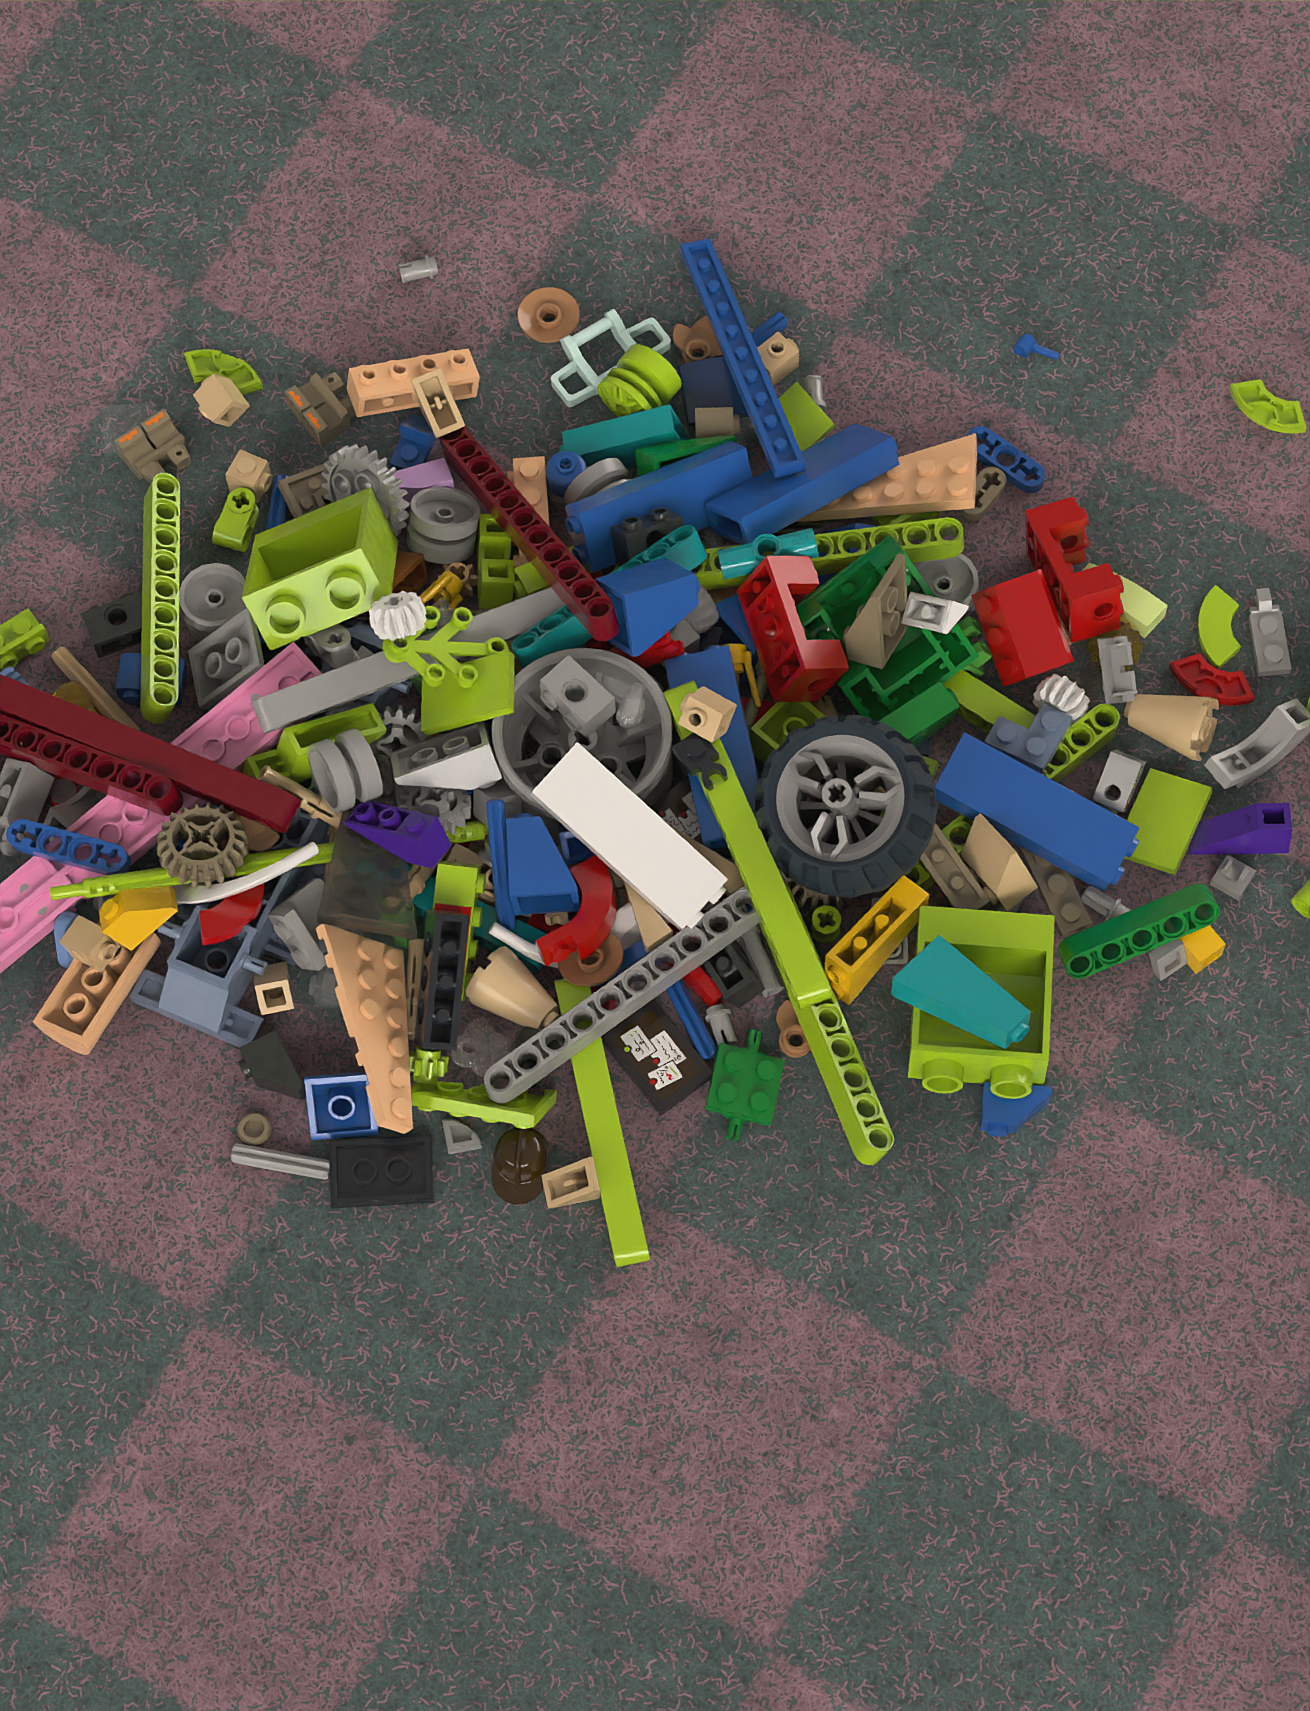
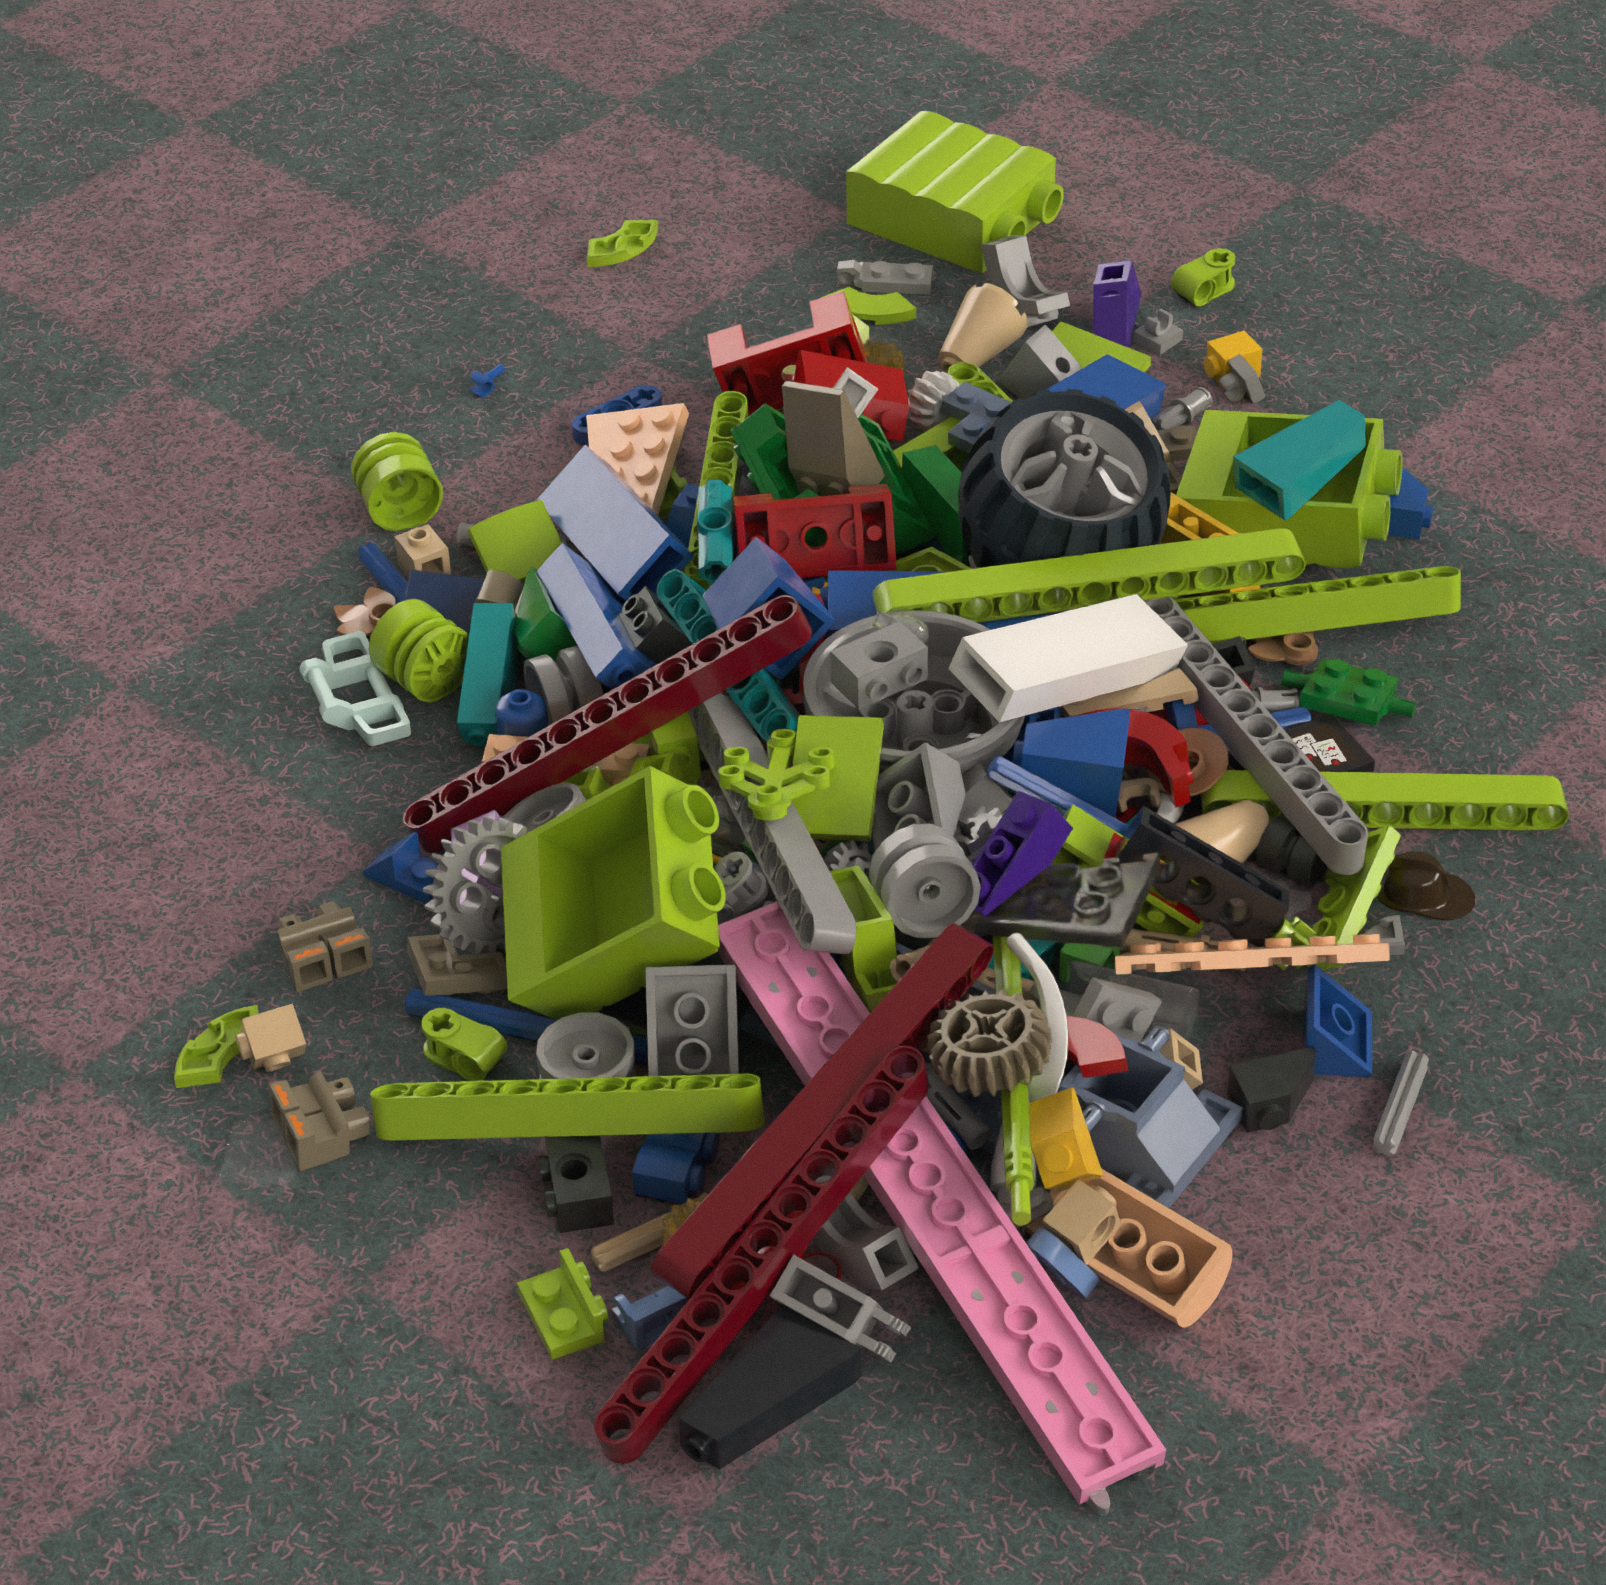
camera: 80 degrees left, 25 degrees down
(70, 843) = (946, 1218): blue beam -> none
(250, 473) = (397, 1022): tan brick -> none
(254, 1130) = (1353, 1126): dark tan tile -> none
(381, 1171) = (1423, 1011): black tile -> none
(389, 385) = (328, 844): light nougat brick -> none
(397, 615) = (738, 776): white gear -> none
(419, 269) = (155, 831): light grey pin -> none
(437, 403) = (382, 813): tan slope -> none
(544, 304) = (278, 727): medium nougat dish -> none
(571, 1184) = (1462, 830): tan slope -> none
(699, 756) = (983, 585): black plate -> none
(706, 713) = (939, 555): tan brick -> none
(743, 358) = (421, 556): blue plate -> none
(849, 314) = (396, 481): none -> lime wheel
(1114, 656) = (902, 343): light grey hinge -> none
(1138, 931) = (1216, 361): green beam -> none
(1207, 681) = (930, 321): red tile -> none

